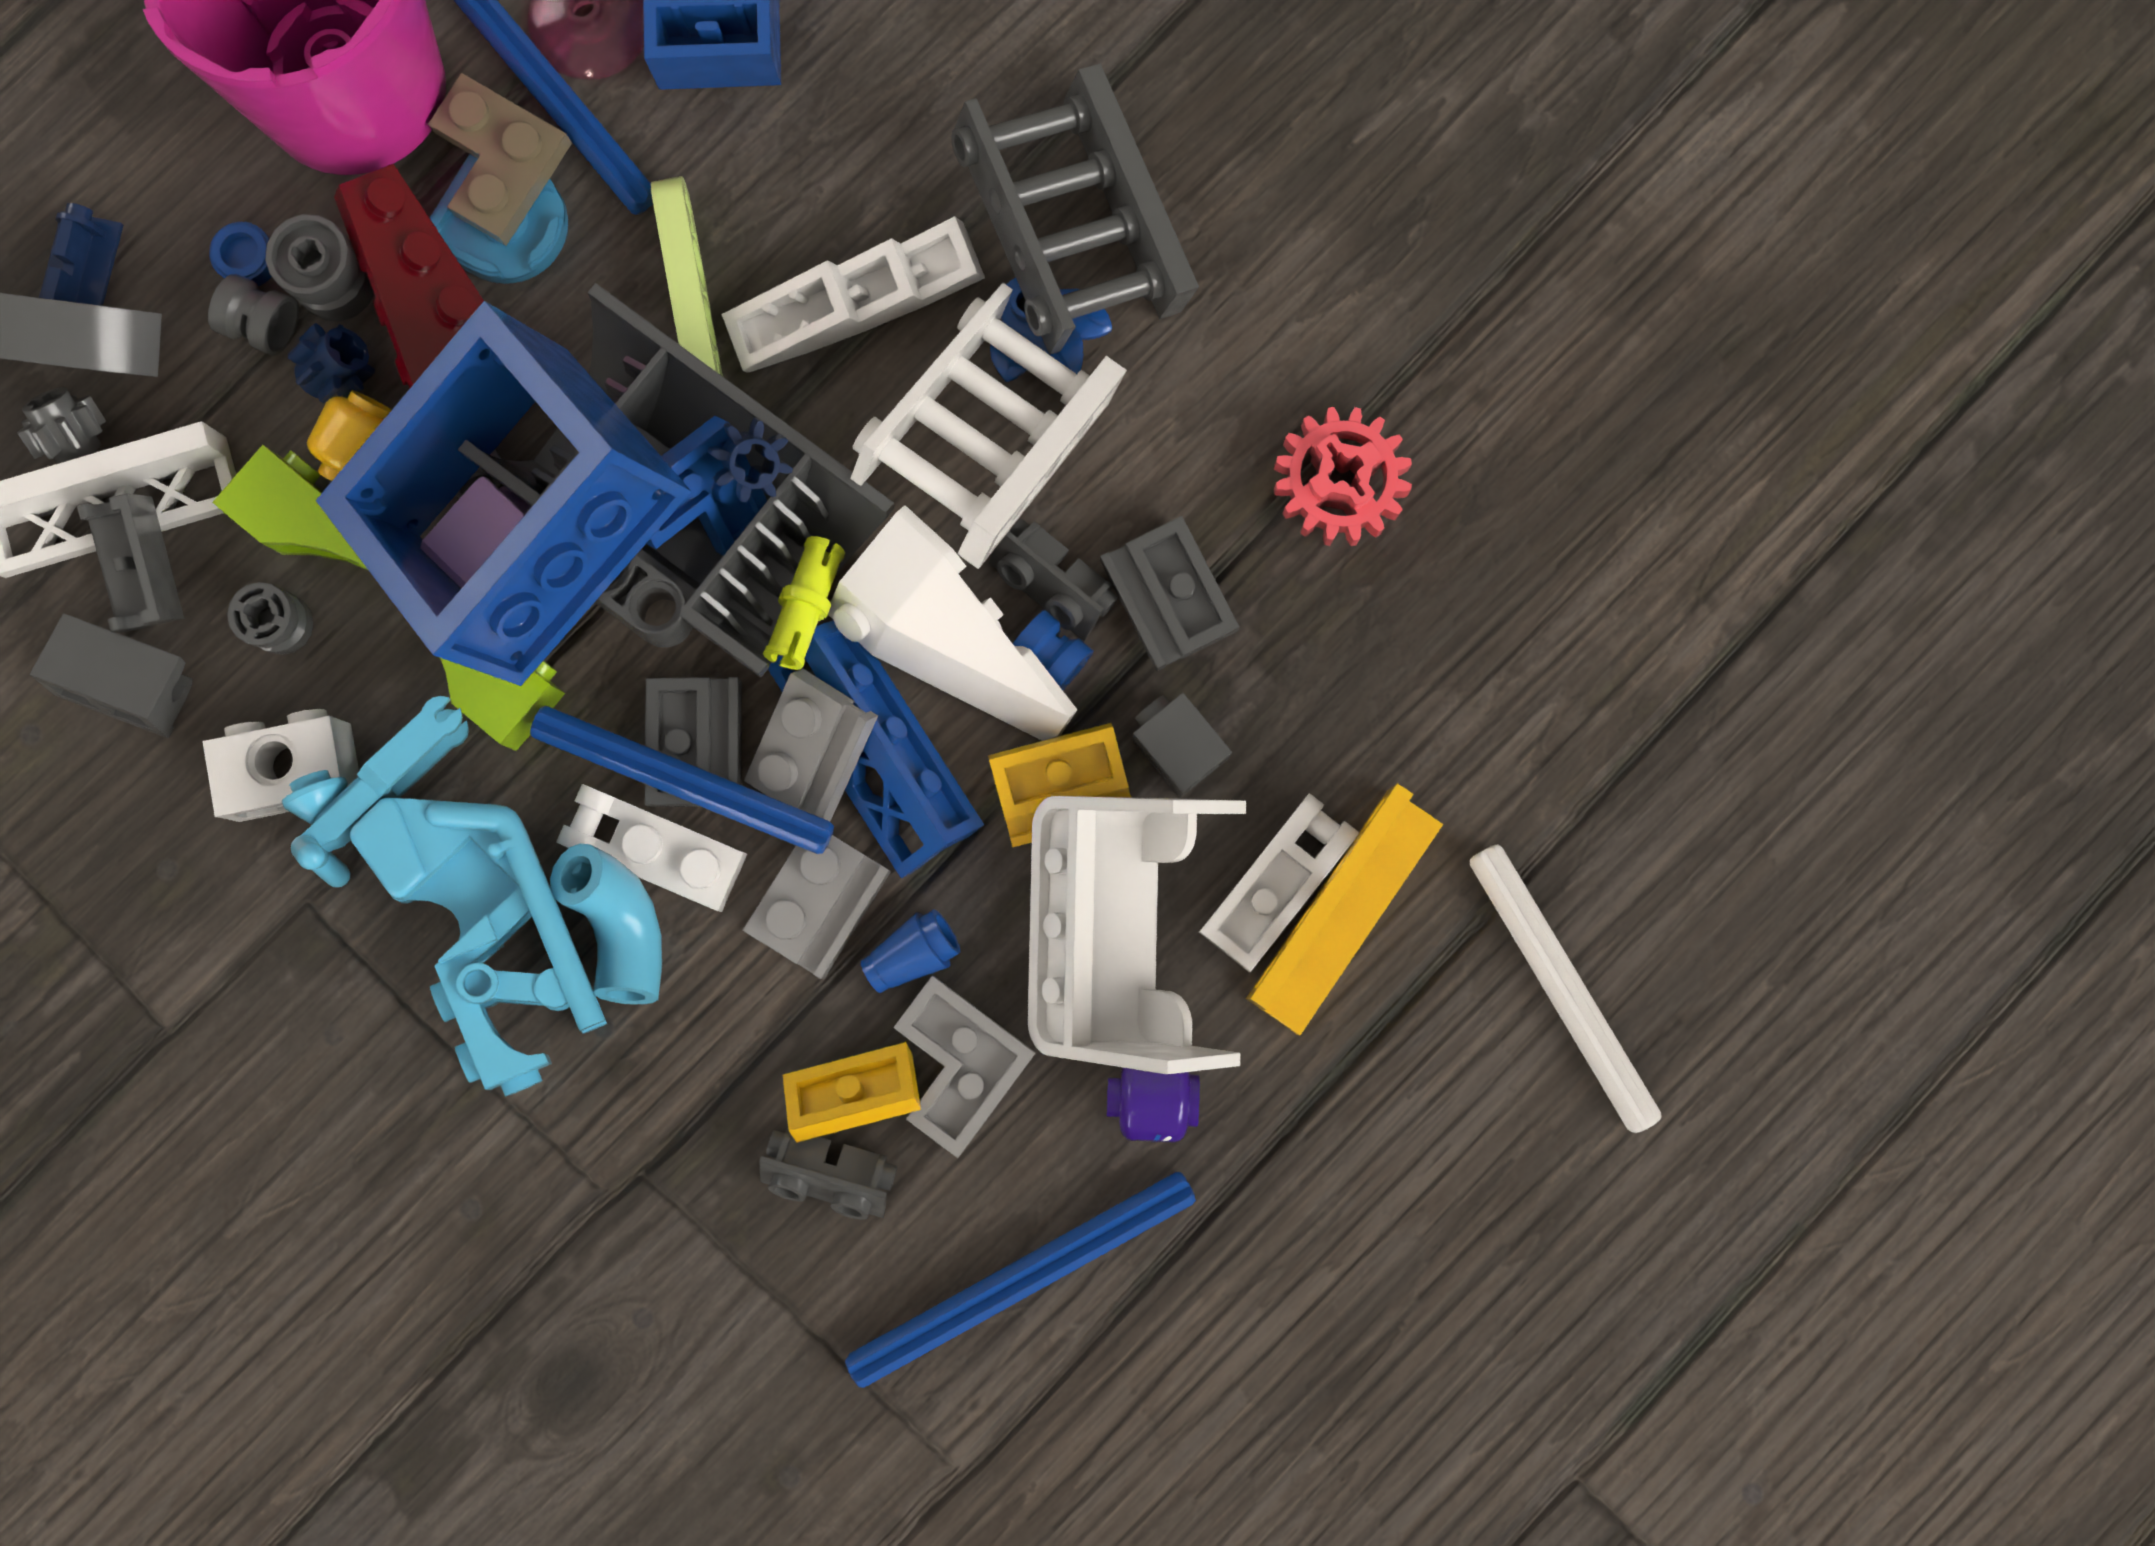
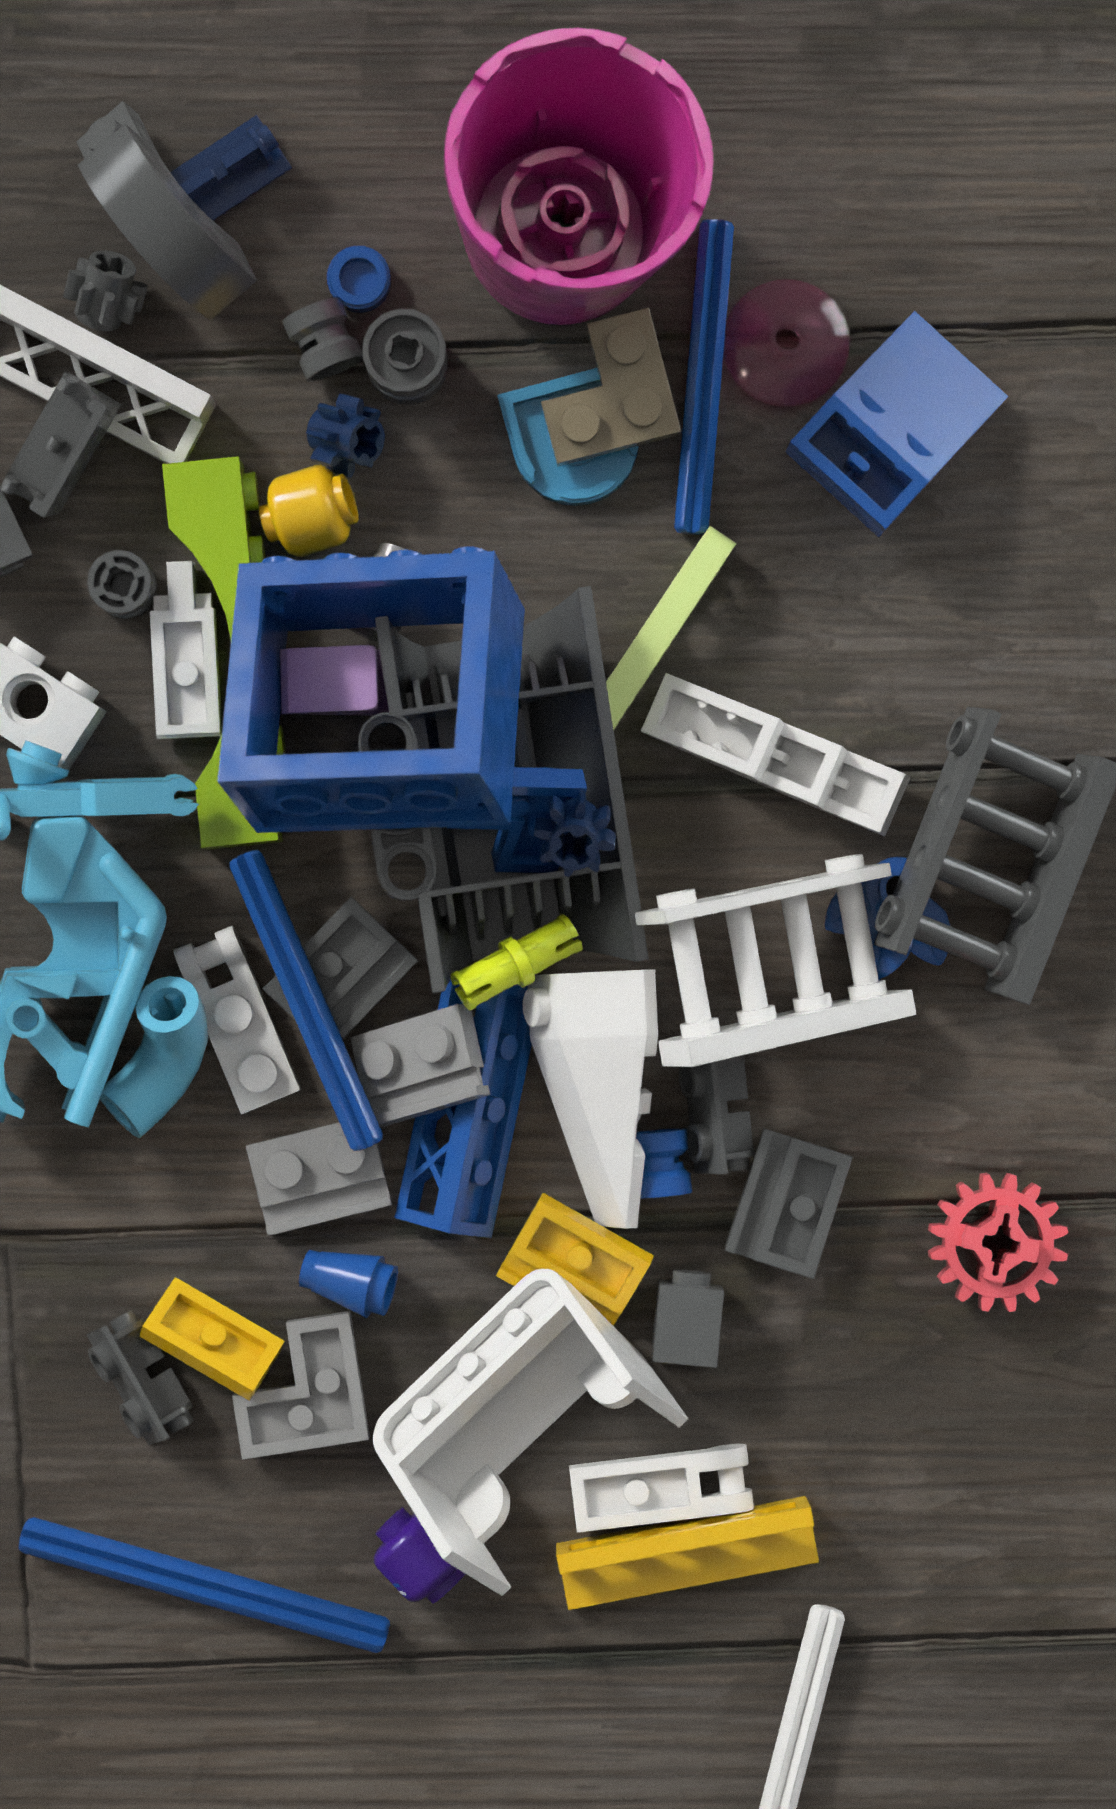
camera: 40 degrees right, 5 degrees up
(365, 628) = (185, 658): none -> white hinge
(412, 270) = (464, 450): dark red wing -> none

